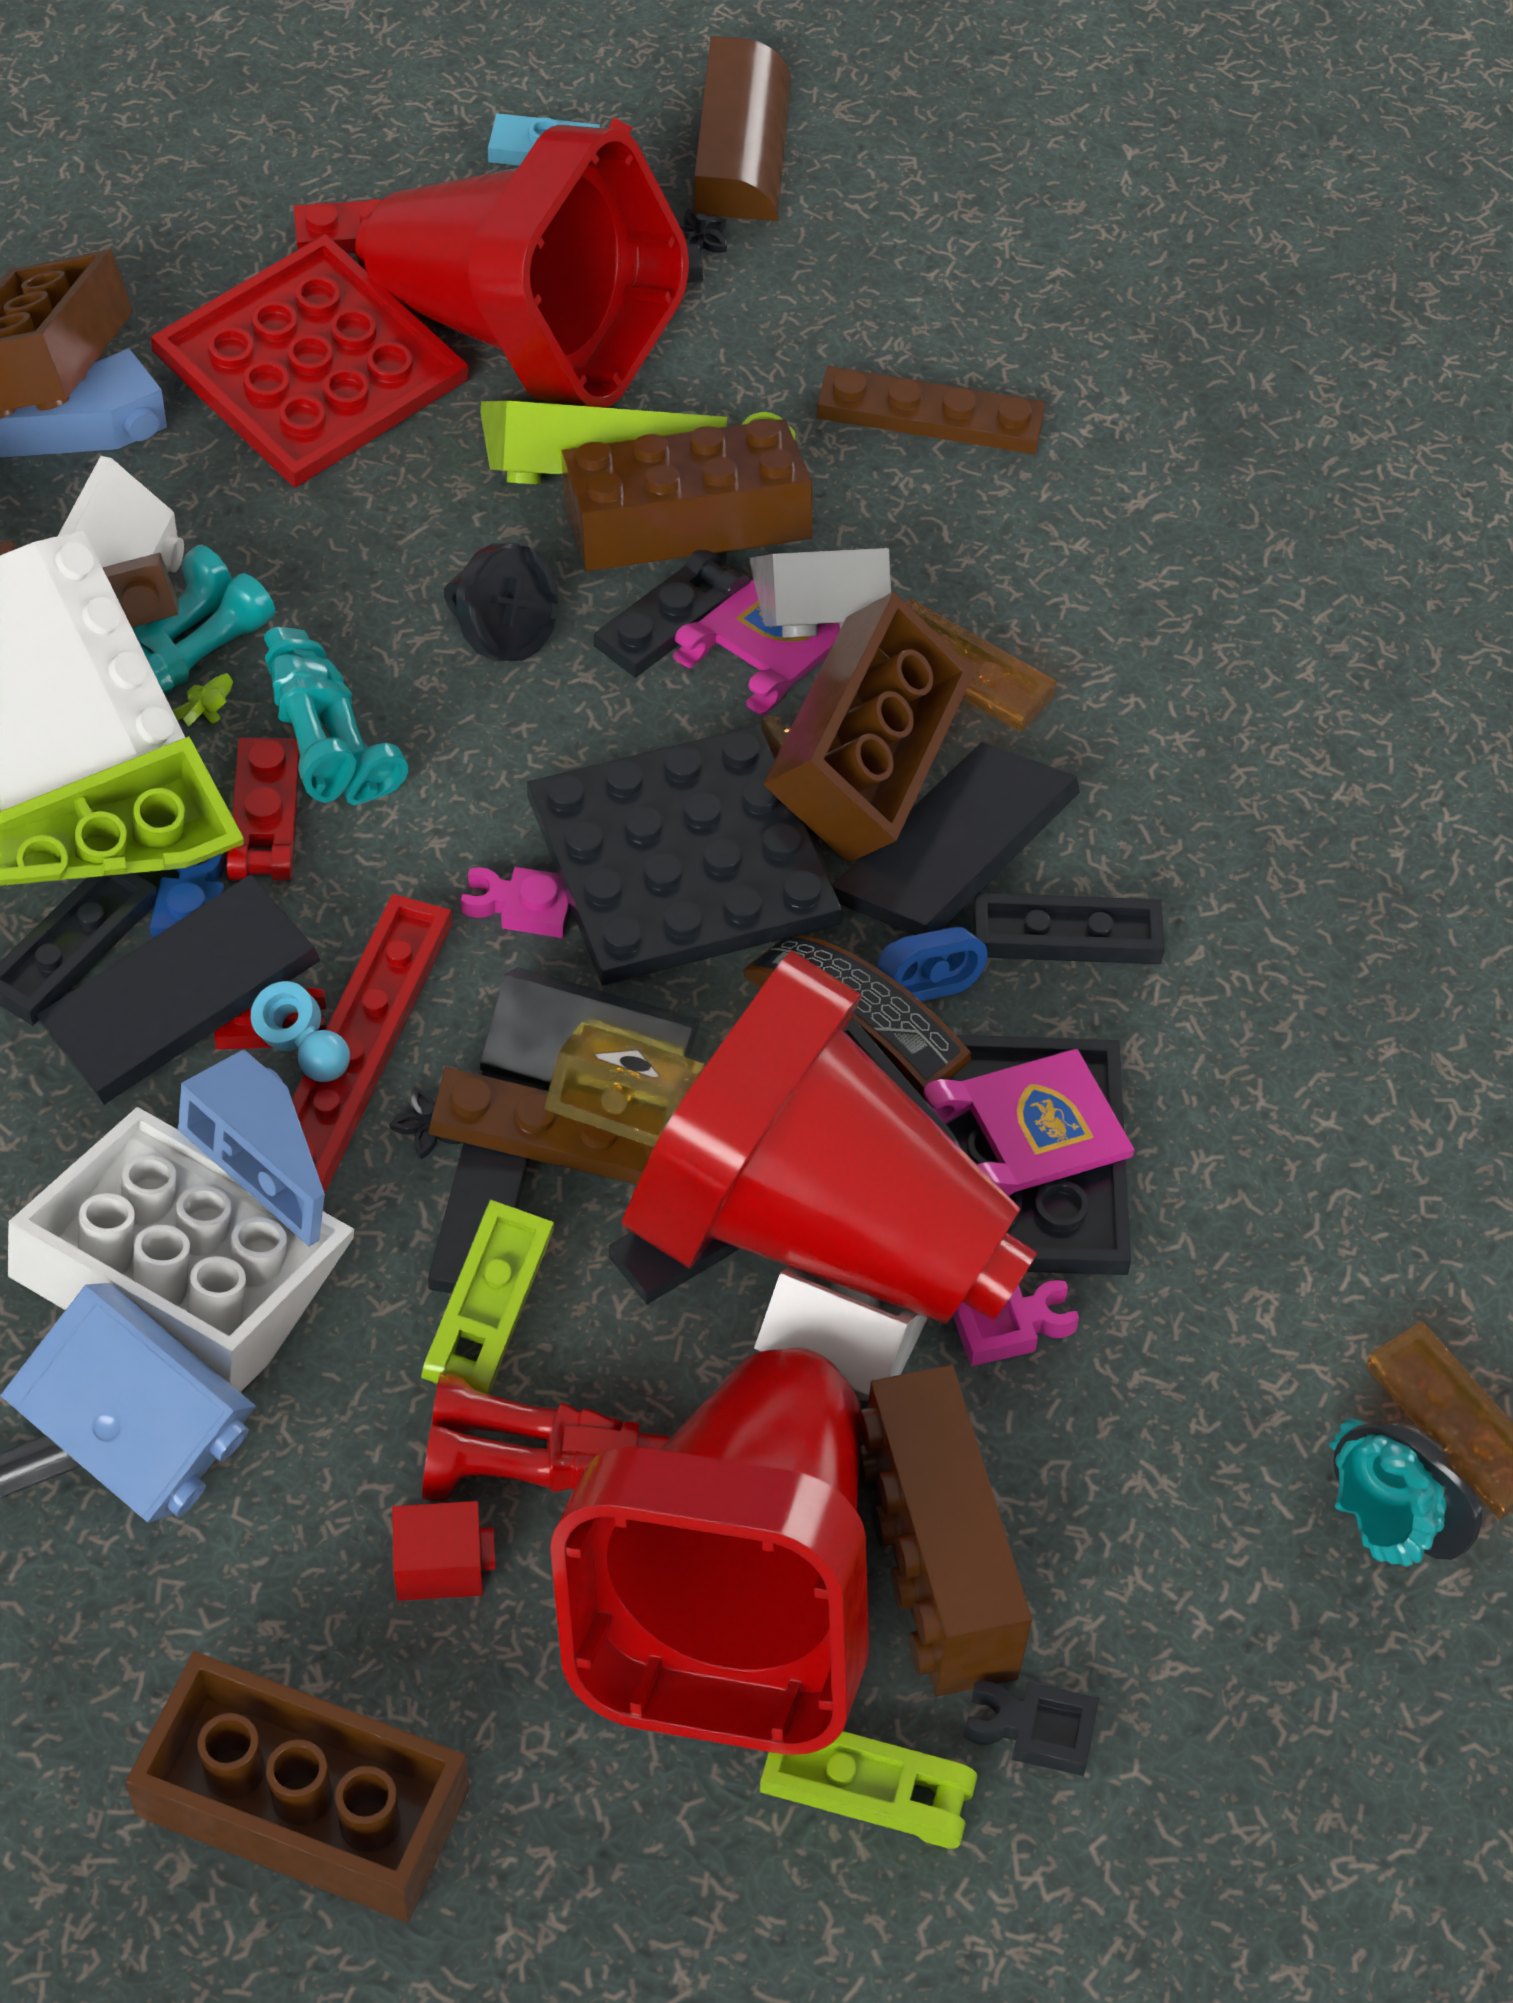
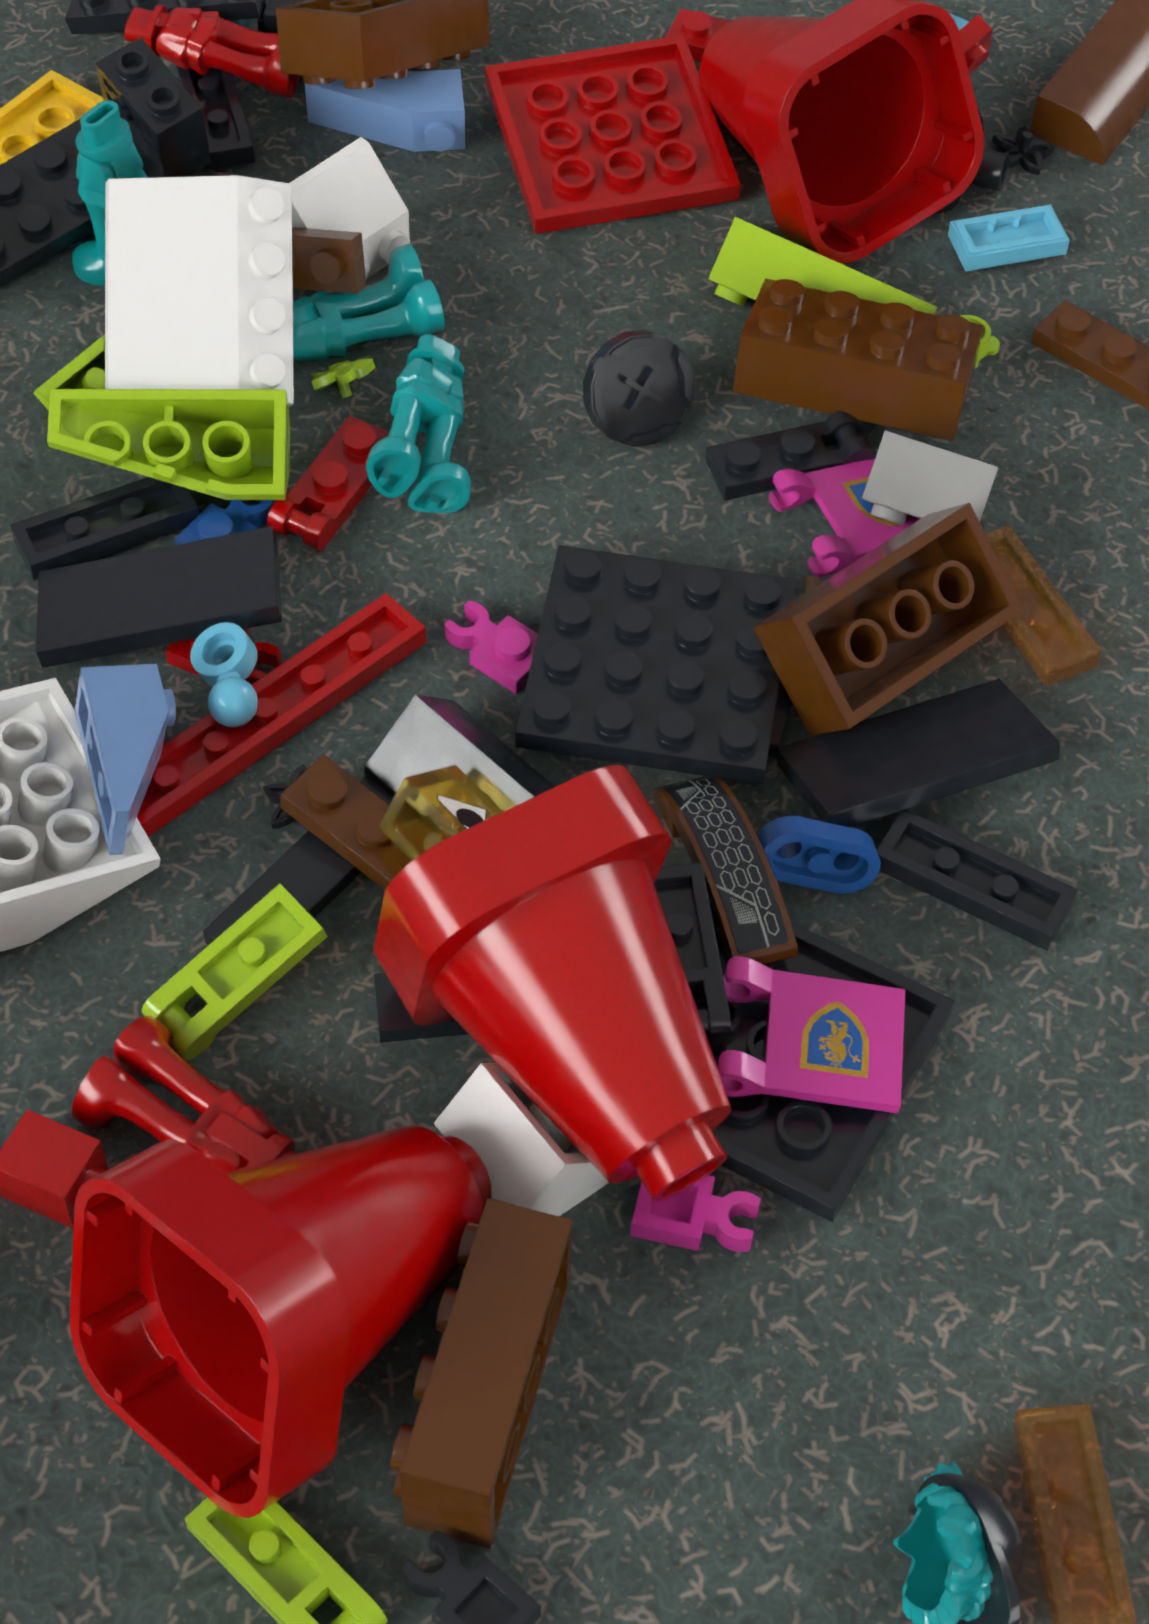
camera: 30 degrees right, 0 degrees up
(740, 324) = (1008, 237): none -> medium azure plate

